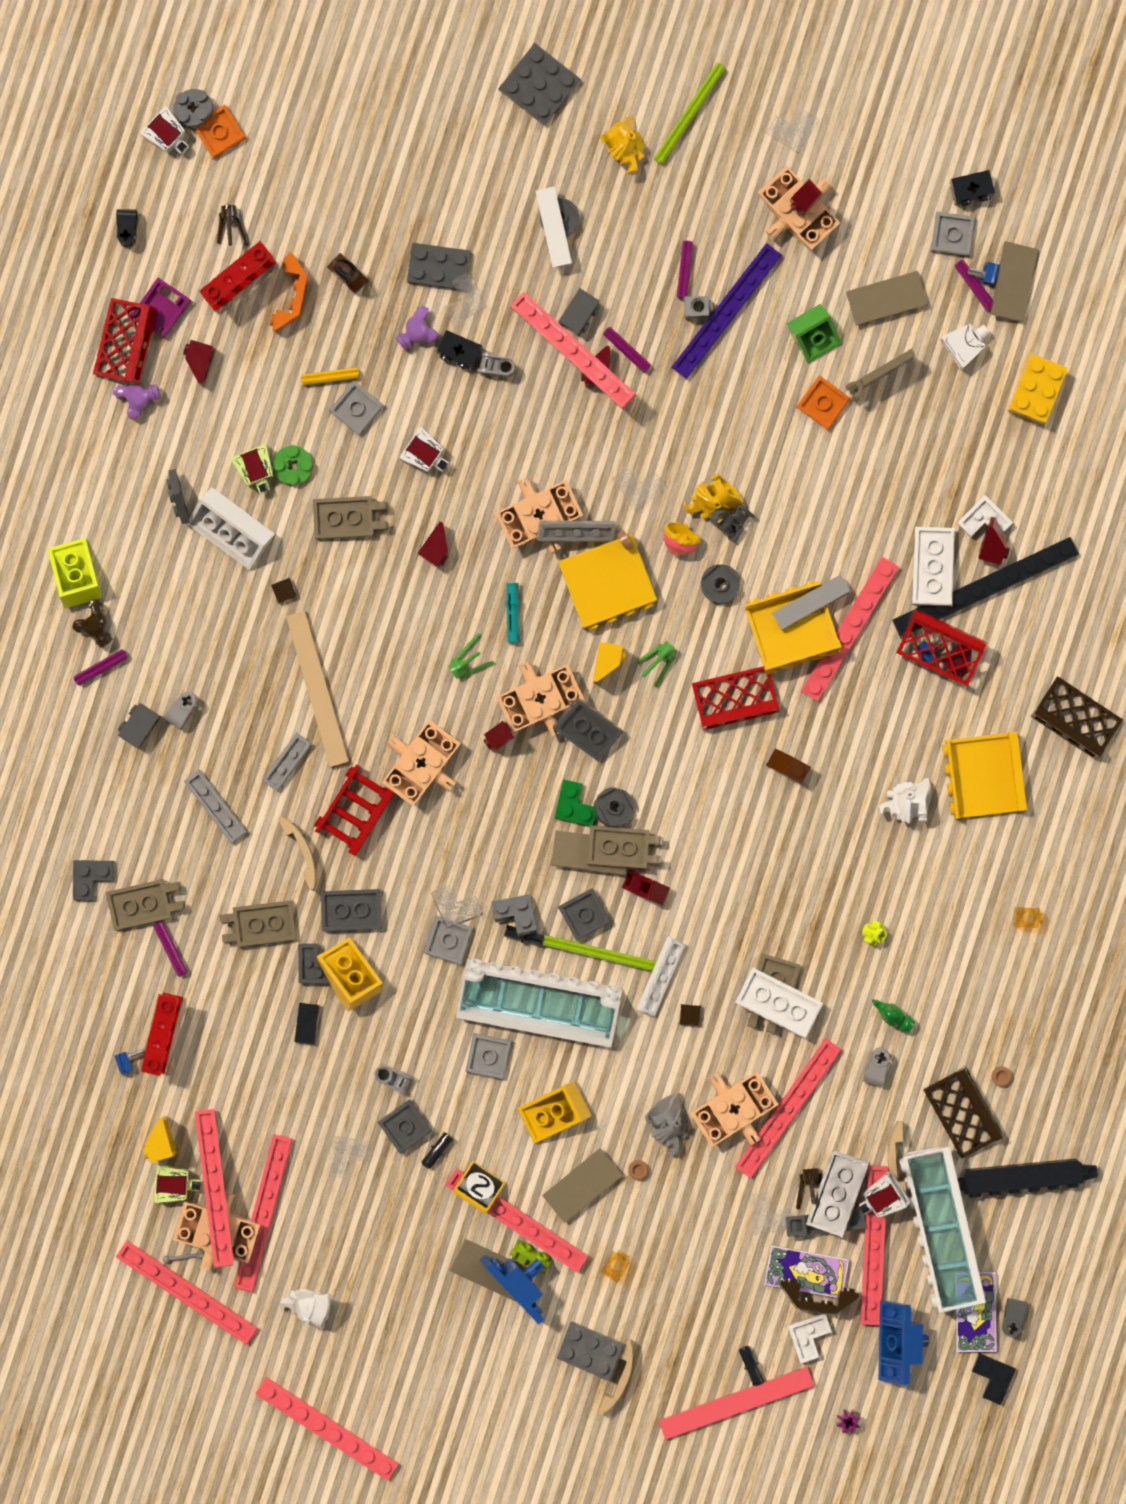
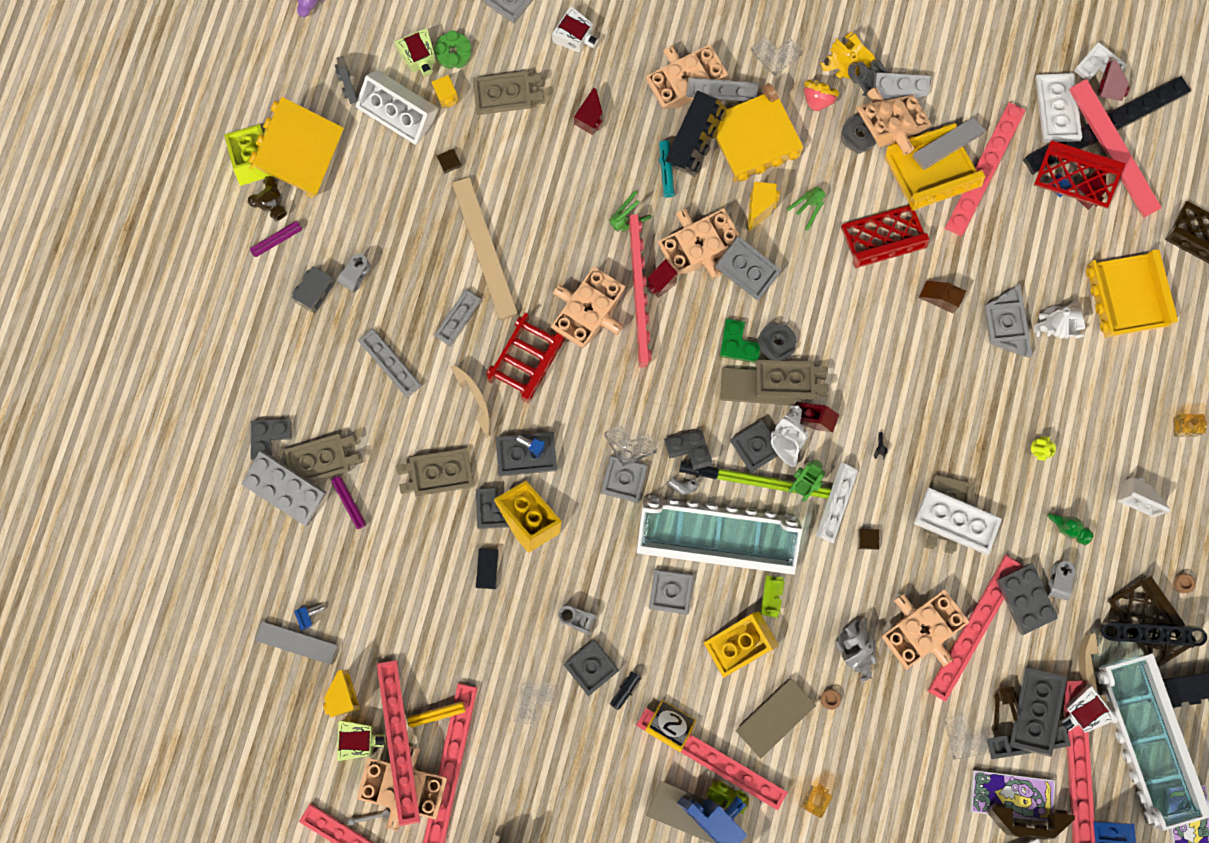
camera: 10 degrees left, 10 degrees down
(106, 931) = (284, 488): none -> light grey plate
(116, 1086) = (296, 643): none -> light grey tile
(125, 574) = (296, 146): none -> yellow panel
(161, 1034) = (340, 584): red fence -> none
(251, 1163) = (436, 714): none -> yellow axle
(282, 515) = (445, 91): none -> yellow brick
(359, 905) = (535, 446): none -> blue piece
(475, 737) = (640, 298): none -> coral plate
(508, 952) = (685, 487): none -> light grey arm
(543, 584) = (696, 133): none -> black brick
(587, 1065) = (771, 603): none -> lime hinge
(617, 908) = (789, 437): none -> white helmet
(632, 952) = (808, 479): none -> bright green hinge
(710, 923) = (881, 449): none -> black hand
(753, 575) = (893, 119): none -> light nougat slope
(765, 535) = (901, 85): none -> light grey wing
(841, 1083) = (1026, 599): none -> dark grey plate
(854, 799) = (1008, 323): none -> light grey wing
(949, 1128) = (1162, 637): none -> black beam
(966, 987) = (1142, 497): none -> white slope
(986, 616) = (1115, 147): none -> coral tile

